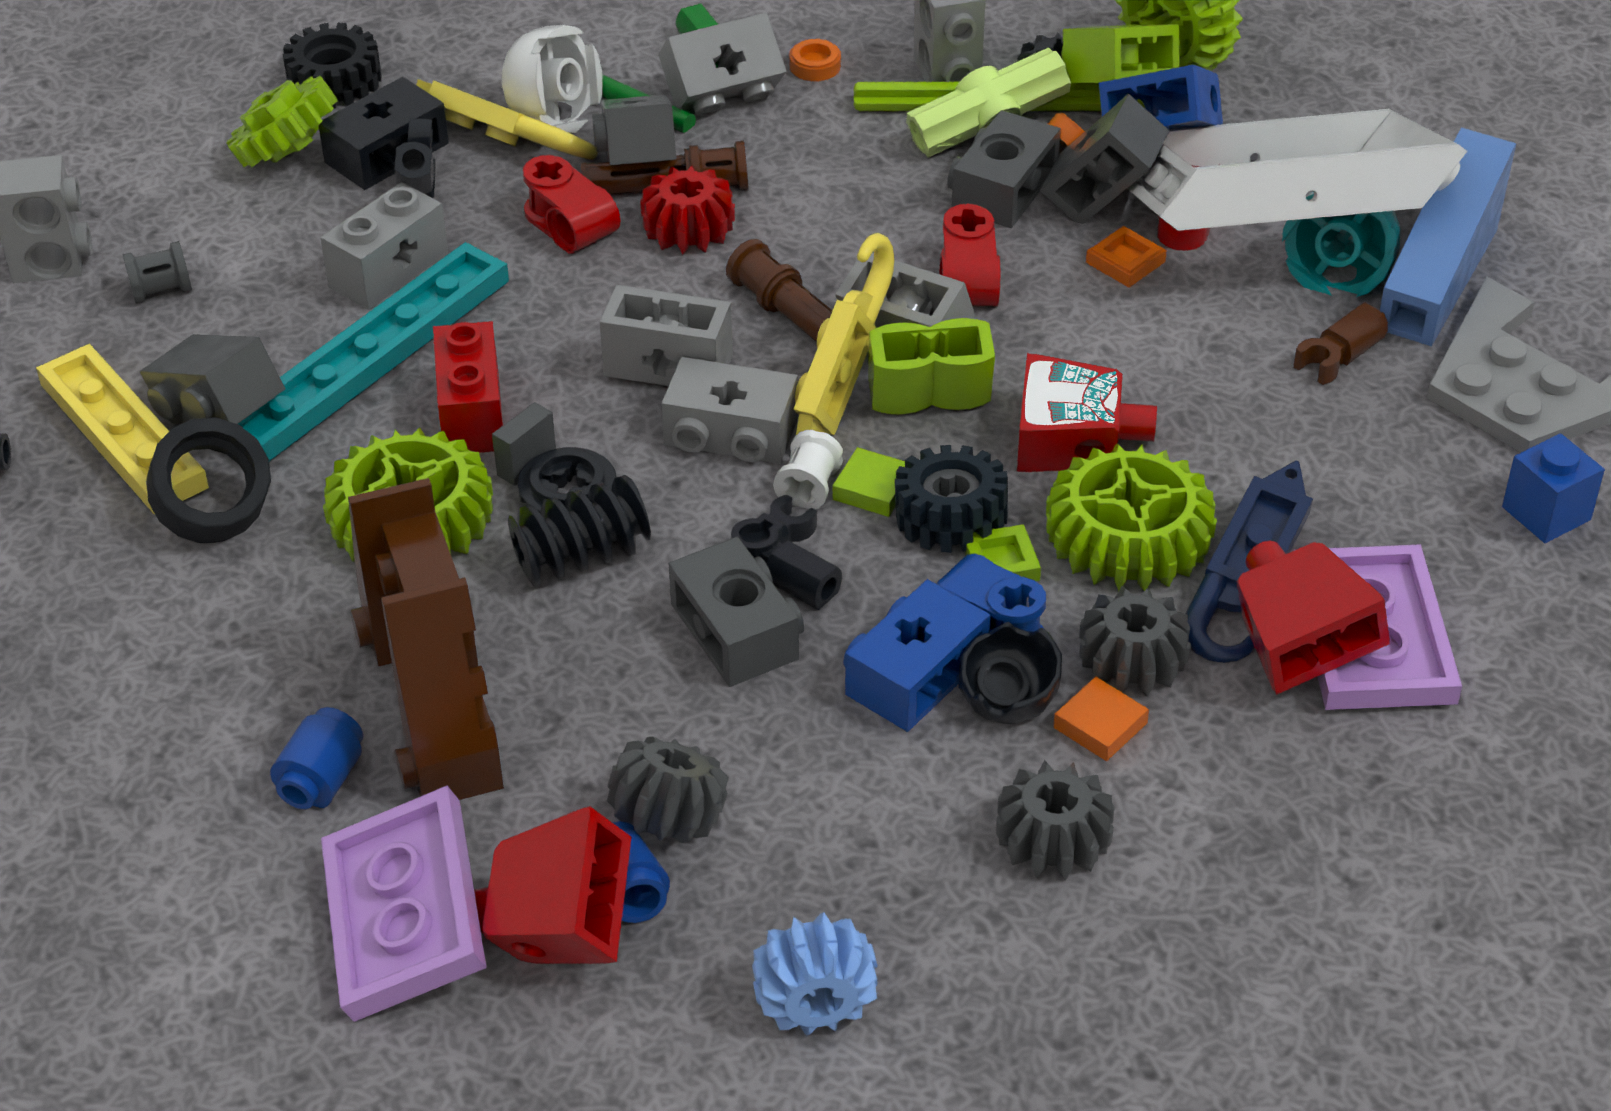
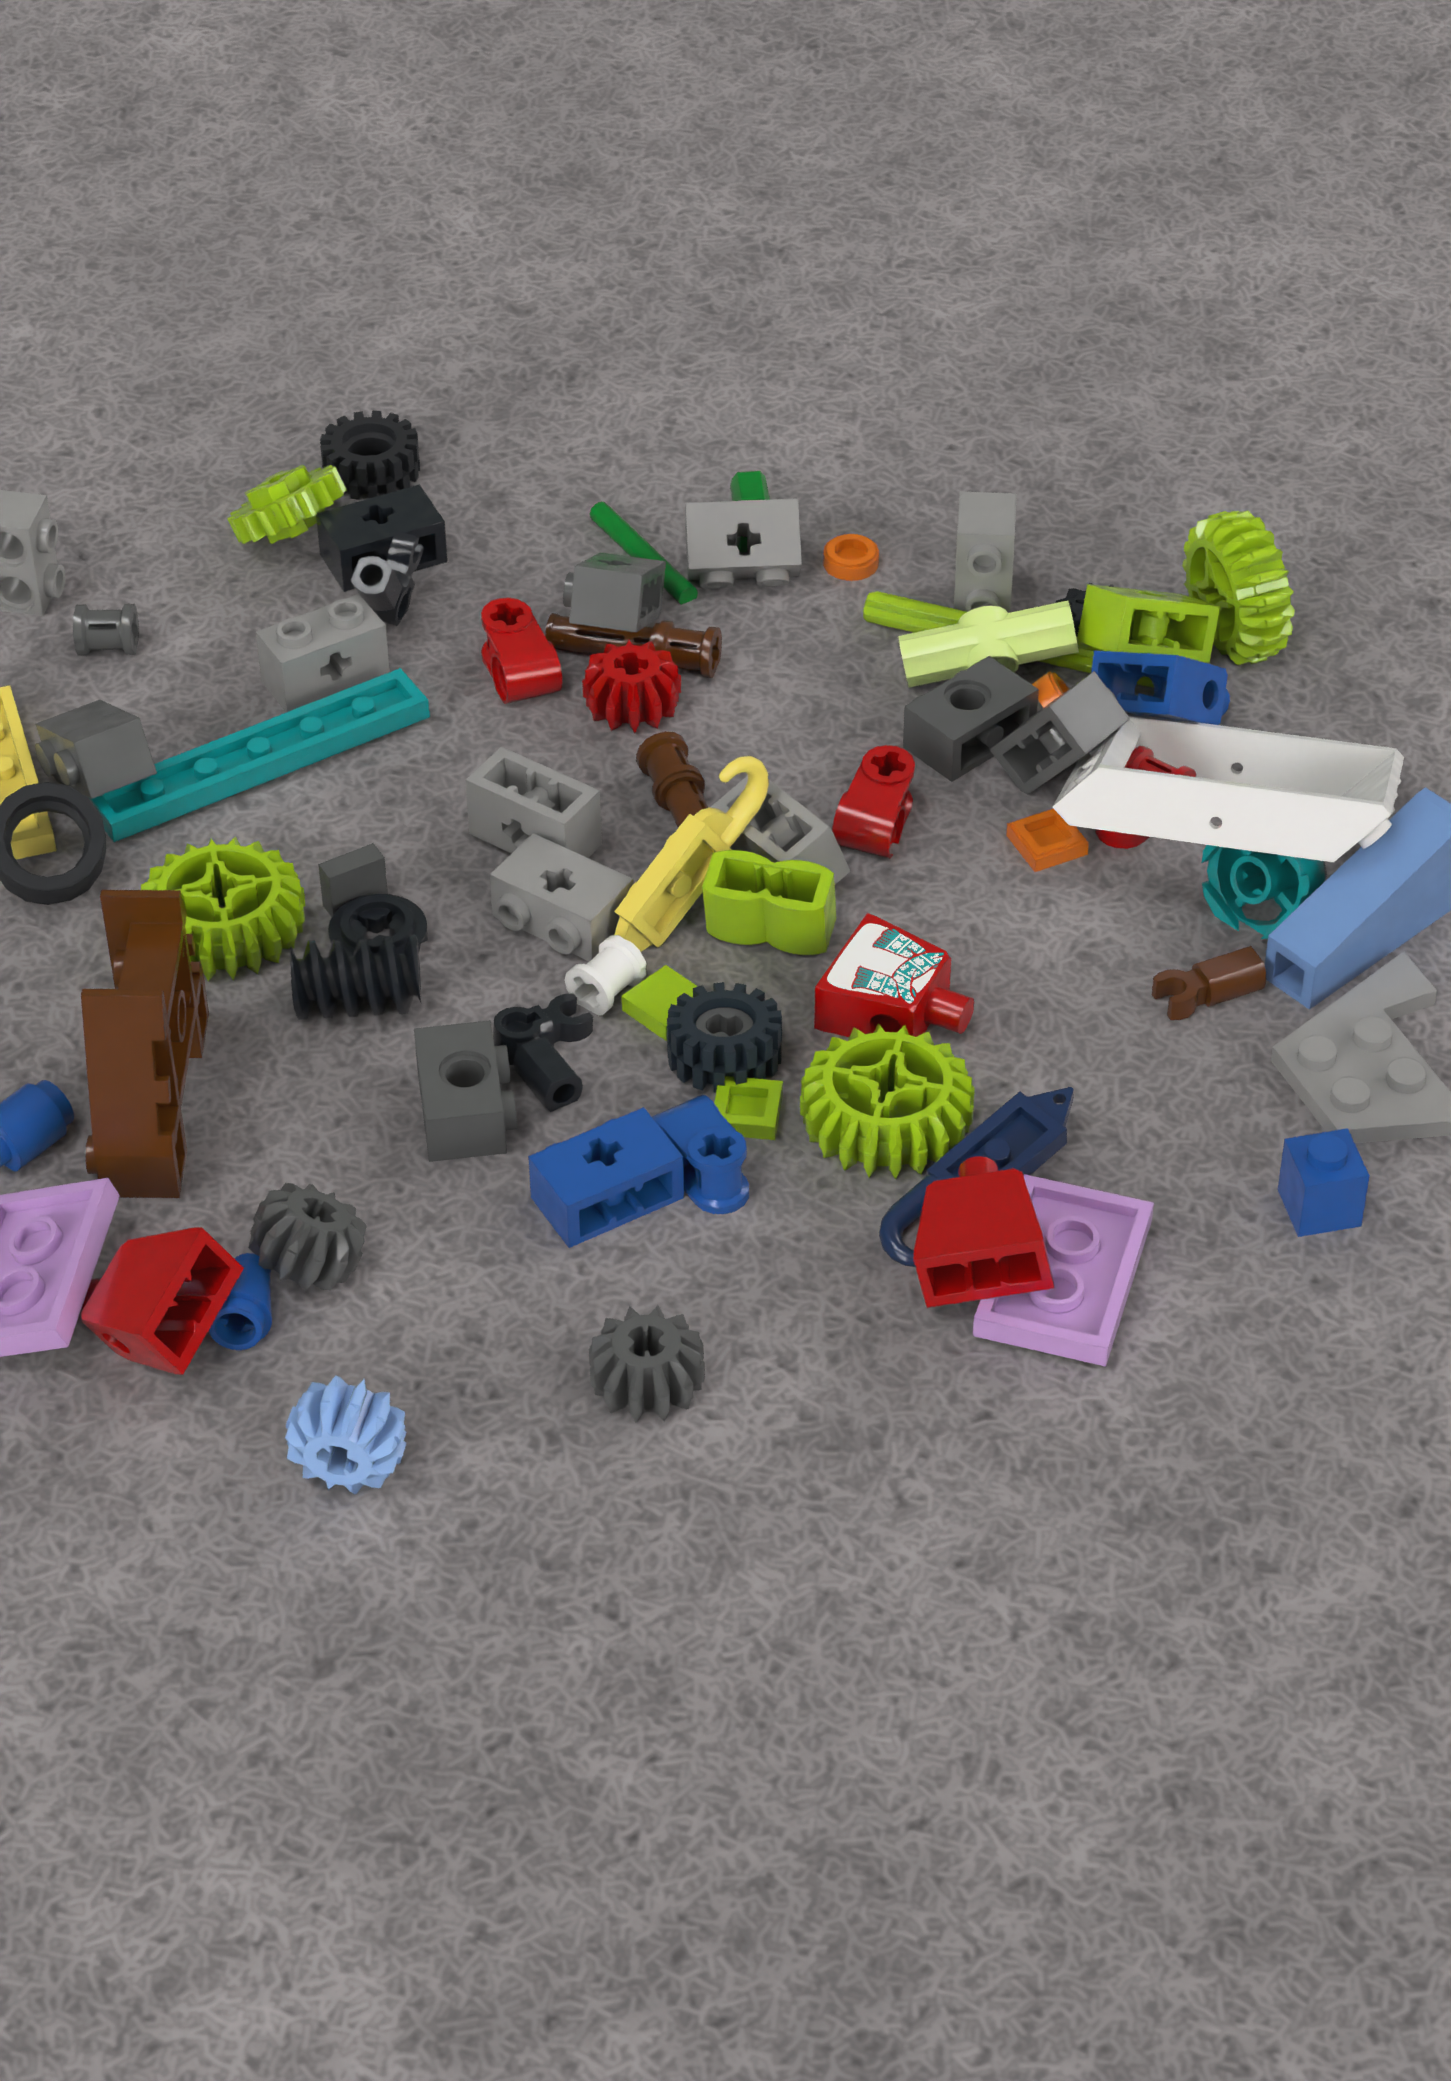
camera: 20 degrees right, 0 degrees up
(468, 383) = (327, 809): red brick -> none
(505, 123) = (502, 551): light yellow plate -> none
(552, 68) = (562, 509): white cylinder -> none
(1010, 673) = (680, 1218): black hair -> none
(1101, 718) = (752, 1284): orange tile -> none
(1134, 640) = (819, 1219): dark grey gear -> none

